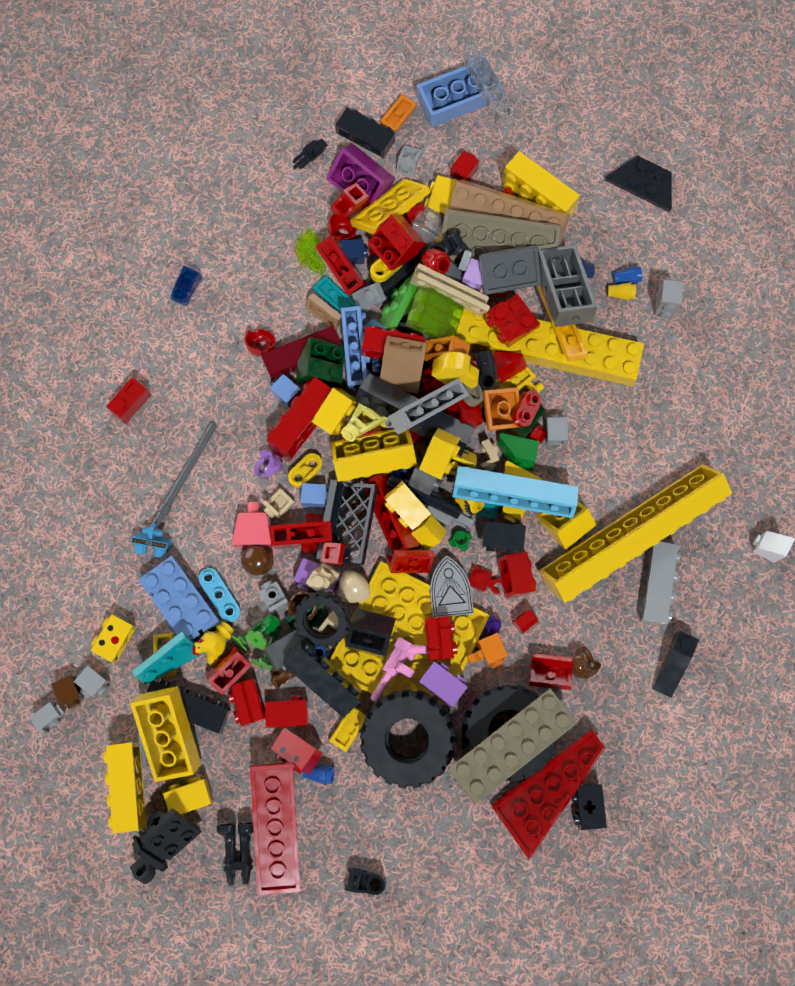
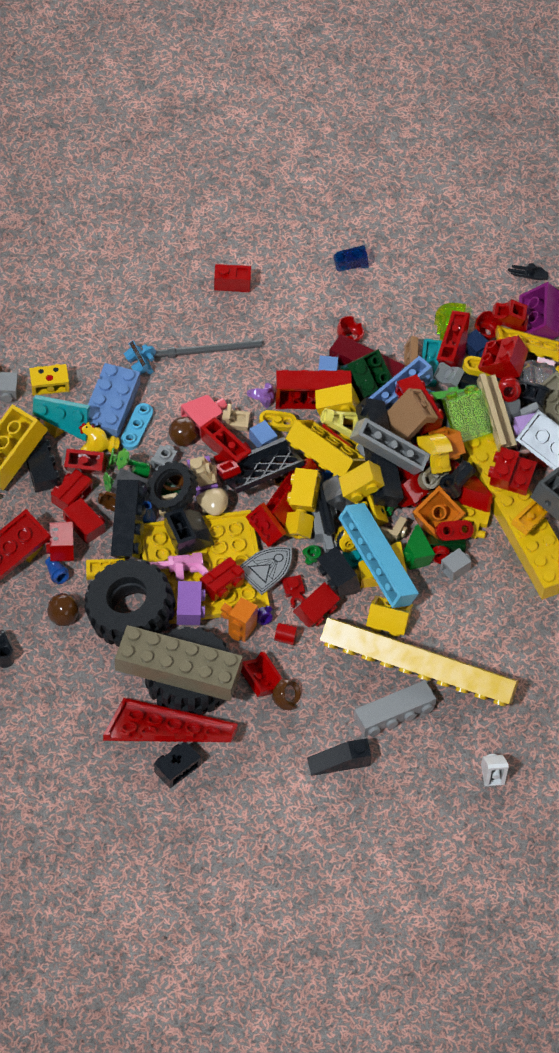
camera: 50 degrees right, 20 degrees down
(366, 797) = (63, 609): none -> reddish brown hair

